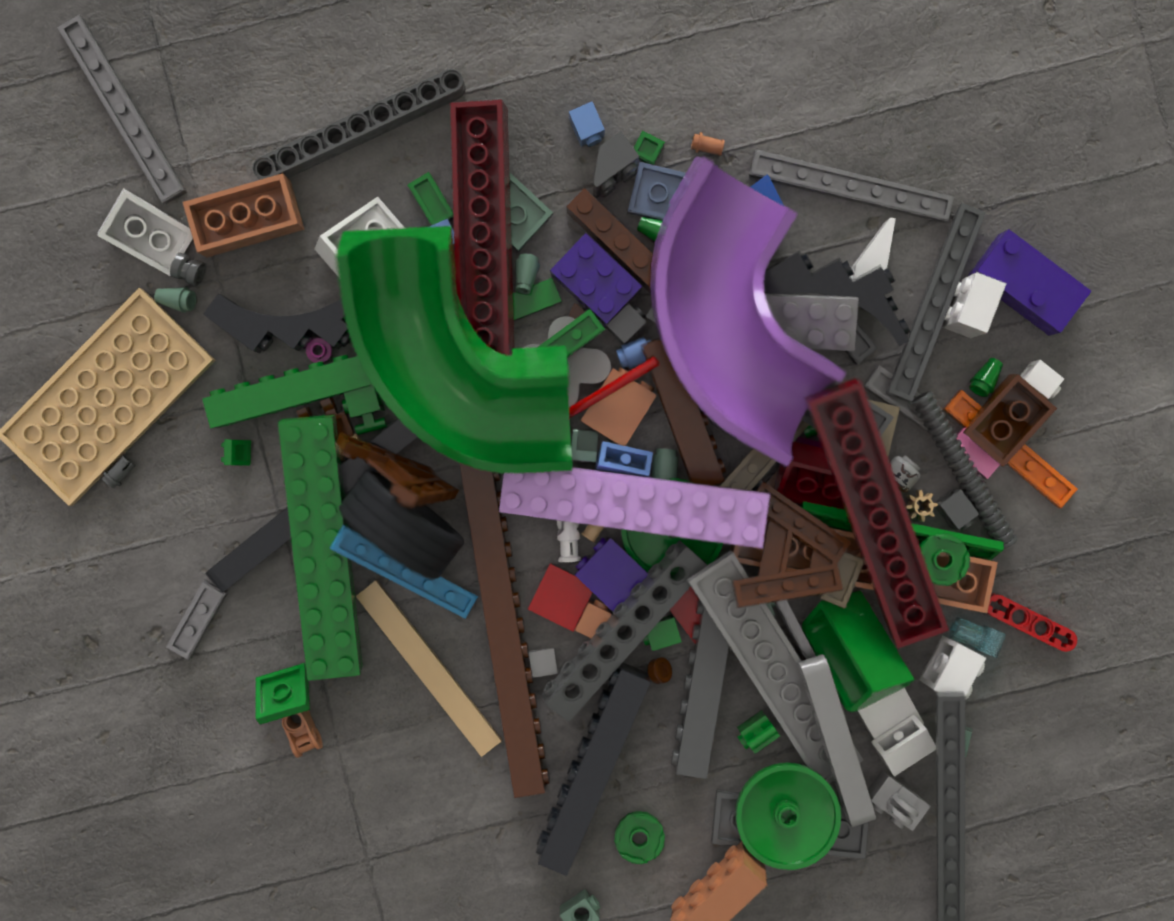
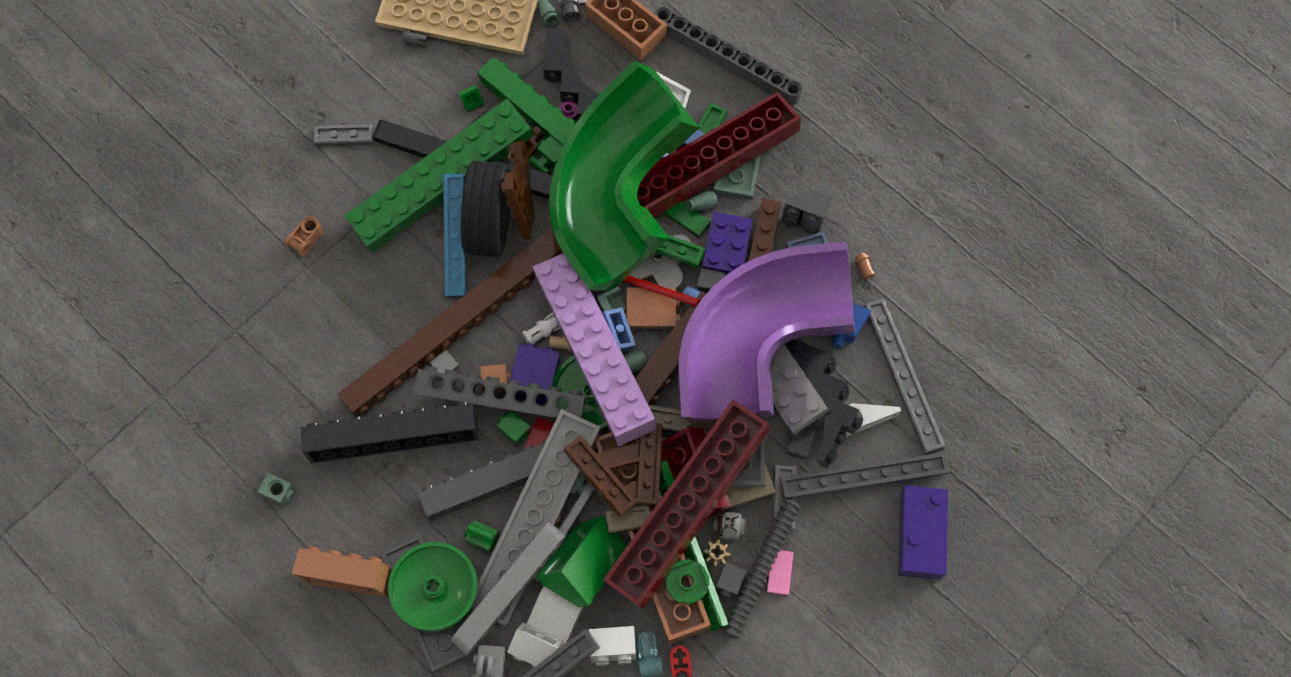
camera: 50 degrees right, 20 degrees down
(282, 694) = (323, 208): green plate -> none
(429, 668) = (395, 294): tan tile -> none
(560, 597) = (497, 347): red tile -> none
(587, 124) = (825, 182): medium blue brick -> none
(634, 823) = (363, 511): green tile -> none
(648, 148) = (835, 231): green tile -> none
(659, 670) = (485, 443): reddish brown tile -> none
(974, 305) = (879, 498): white brick -> none
(985, 379) = (837, 545): green cone -> none
(1009, 418) = (817, 574): reddish brown slope -> none
(1024, 462) = (799, 597): orange tile -> none
(1042, 378) = (861, 584): white brick -> none

